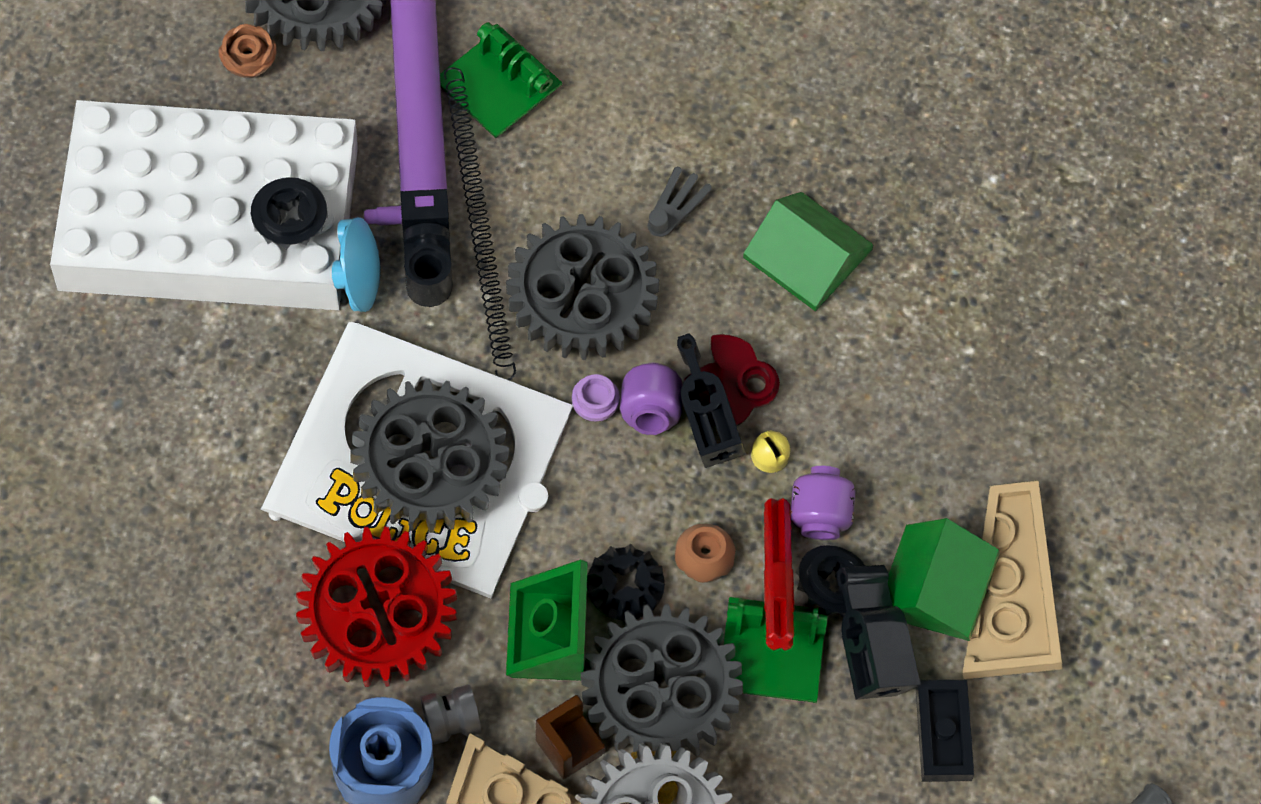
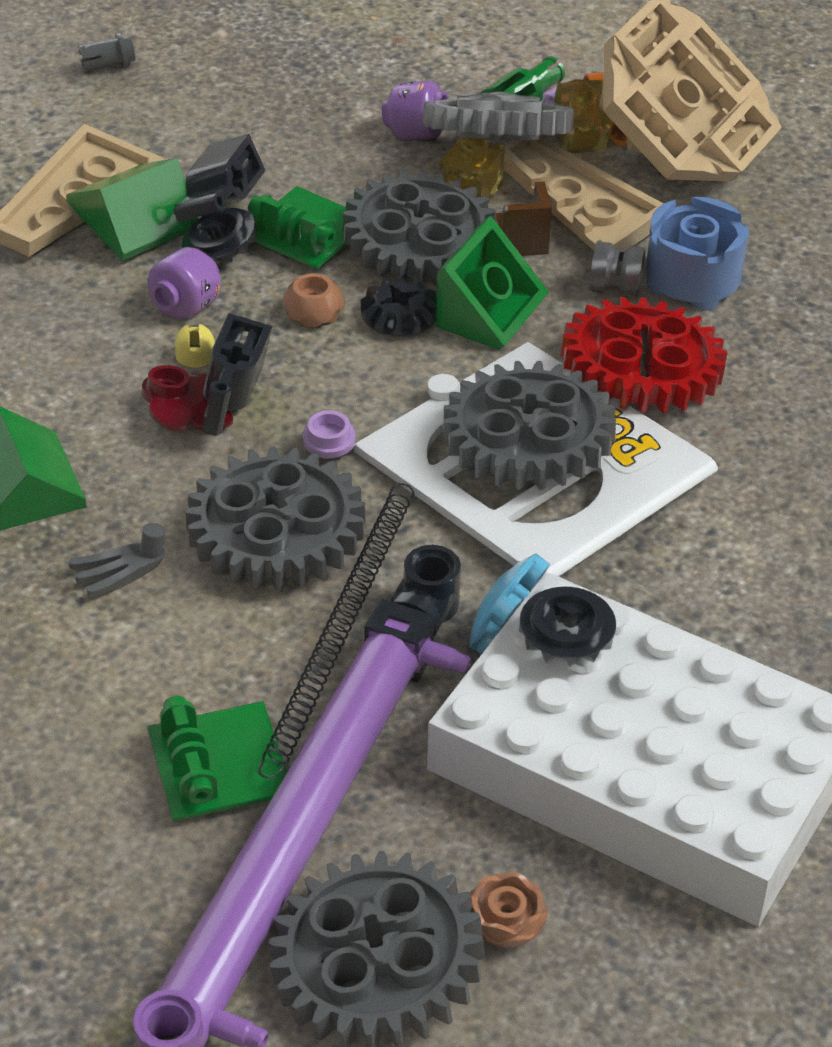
camera: 150 degrees left, 20 degrees down
(651, 398) = (277, 403): medium lavender head -> none
(778, 575) = (268, 233): red axle -> none
(944, 731) = (211, 125): black plate -> none

